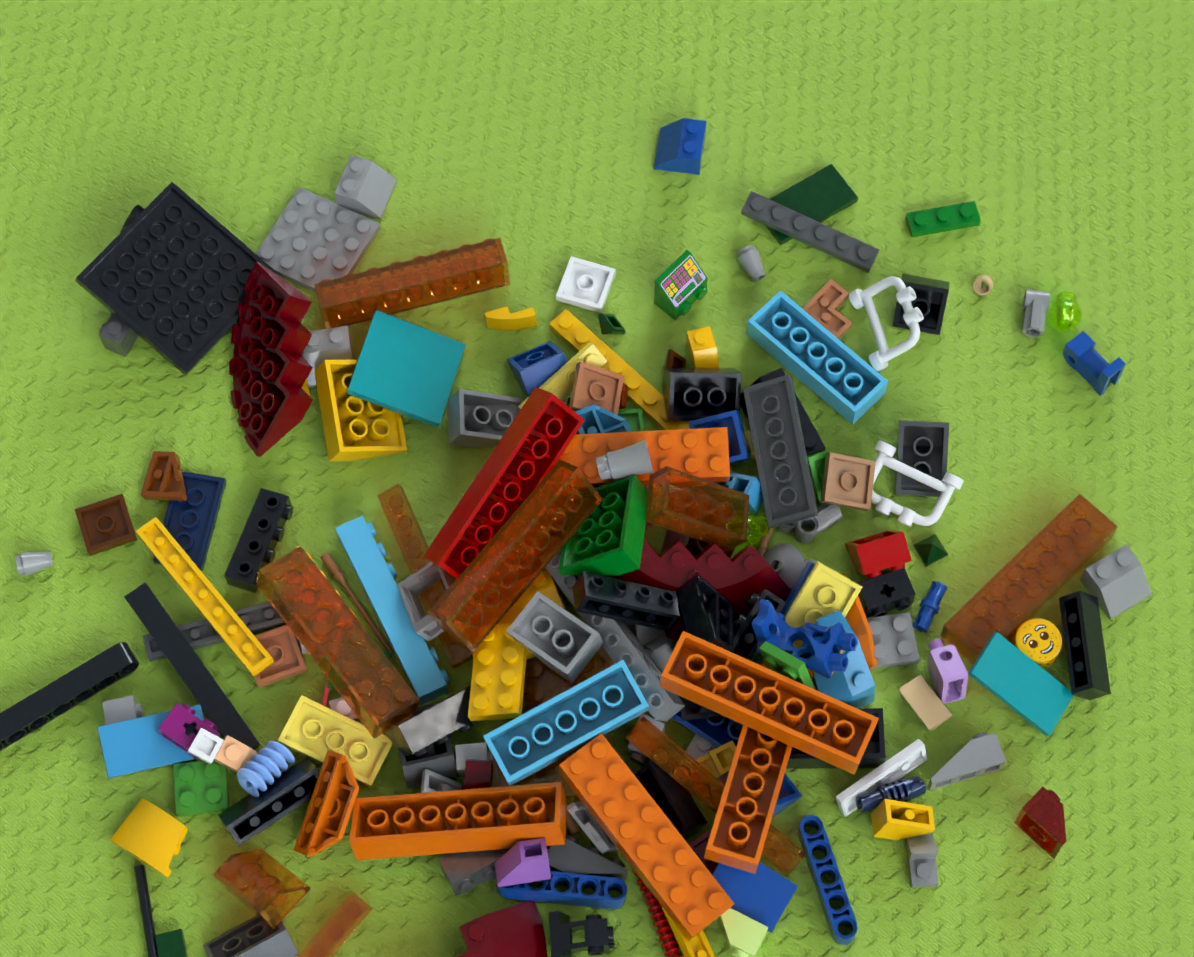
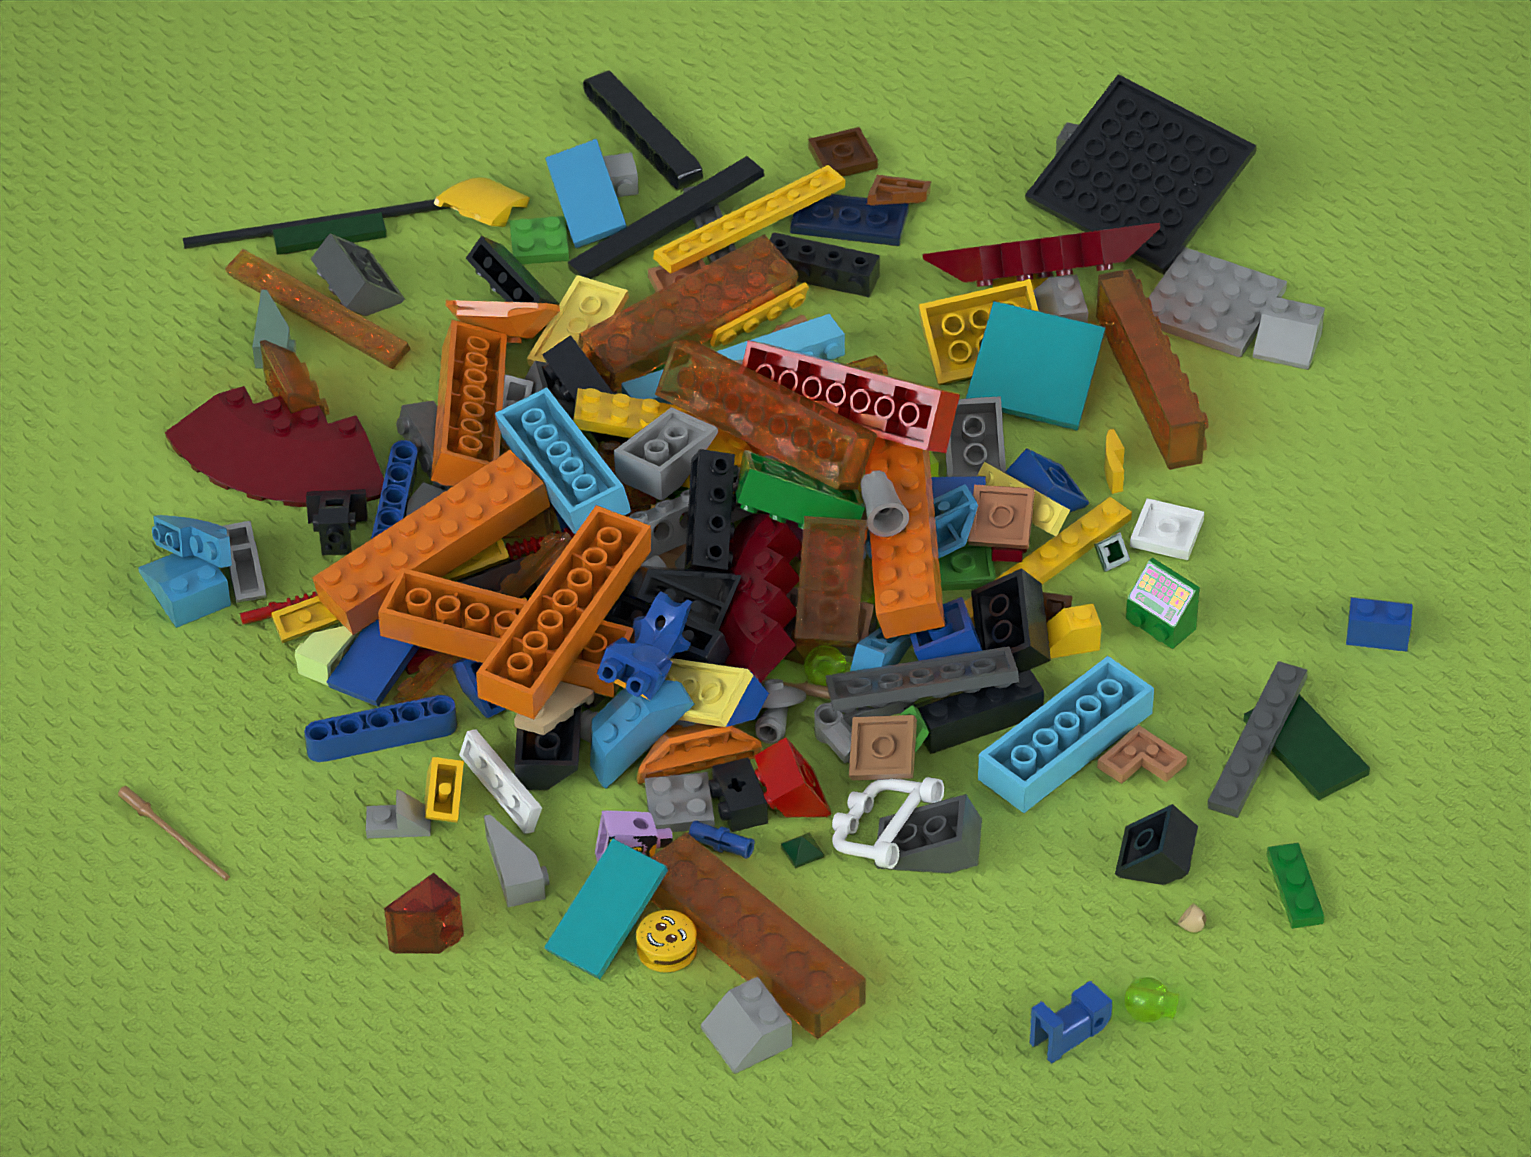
camera: 90 degrees right, 20 degrees down
(32, 562) = (798, 102): light grey cone -> none
(173, 728) = (590, 209): magenta brick -> none
(205, 745) = (568, 212): white plate -> none
(234, 754) = (561, 254): light nougat slope -> none
(262, 884) = (419, 270): clear orange slope -> none
(263, 767) = (545, 267): light blue piece -> none
(523, 863) = (412, 452): medium lavender slope -> none
(751, 262) = (1209, 683): light grey cone -> none
(785, 664) = (604, 630): bright green wing -> none
(899, 790) = (477, 786): dark blue hinge -> none
(912, 316) = (1159, 789): white bar -> none
(925, 702) = (581, 829): tan slope -> none
(1036, 307) = (1164, 966): light grey piece -> none
(1084, 645) = (656, 980): black brick -> none

